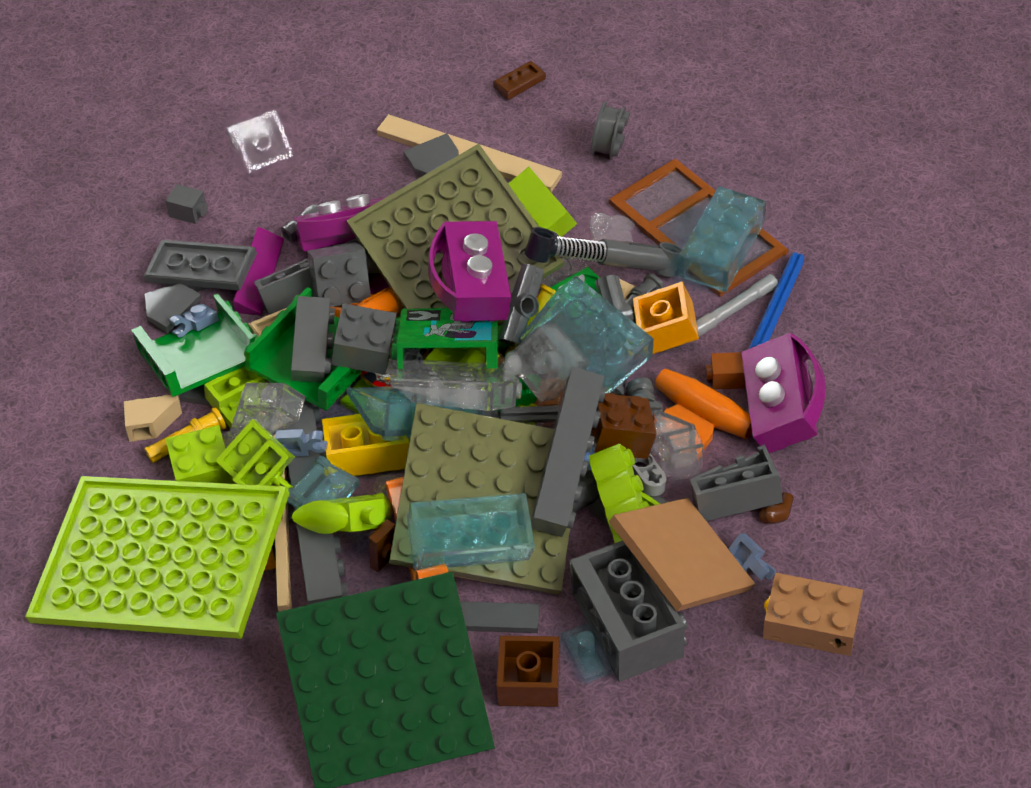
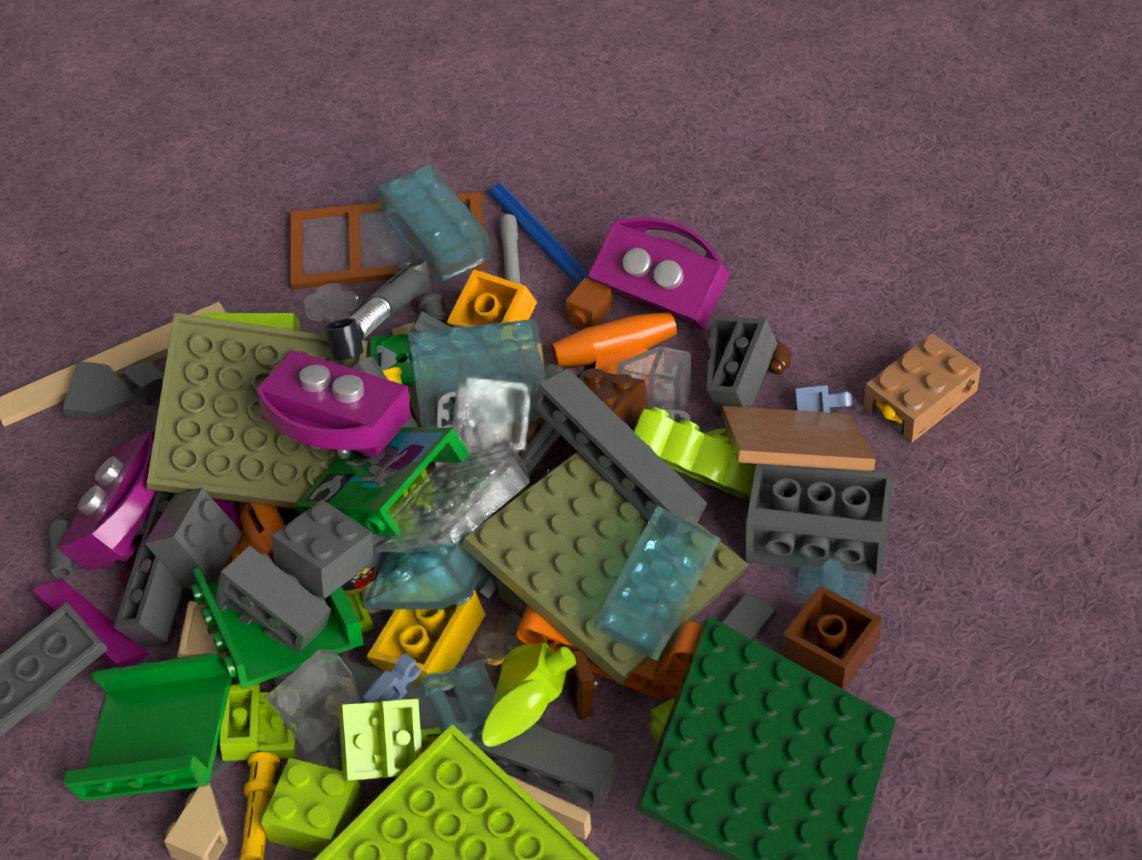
camera: 55 degrees left, 0 degrees up
(167, 302) = (52, 734): dark grey slope -> none
(196, 318) = (99, 714): sand blue plate -> none
(519, 80) = (63, 273): reddish brown plate -> none
(608, 130) = (215, 234): dark grey wheel -> none

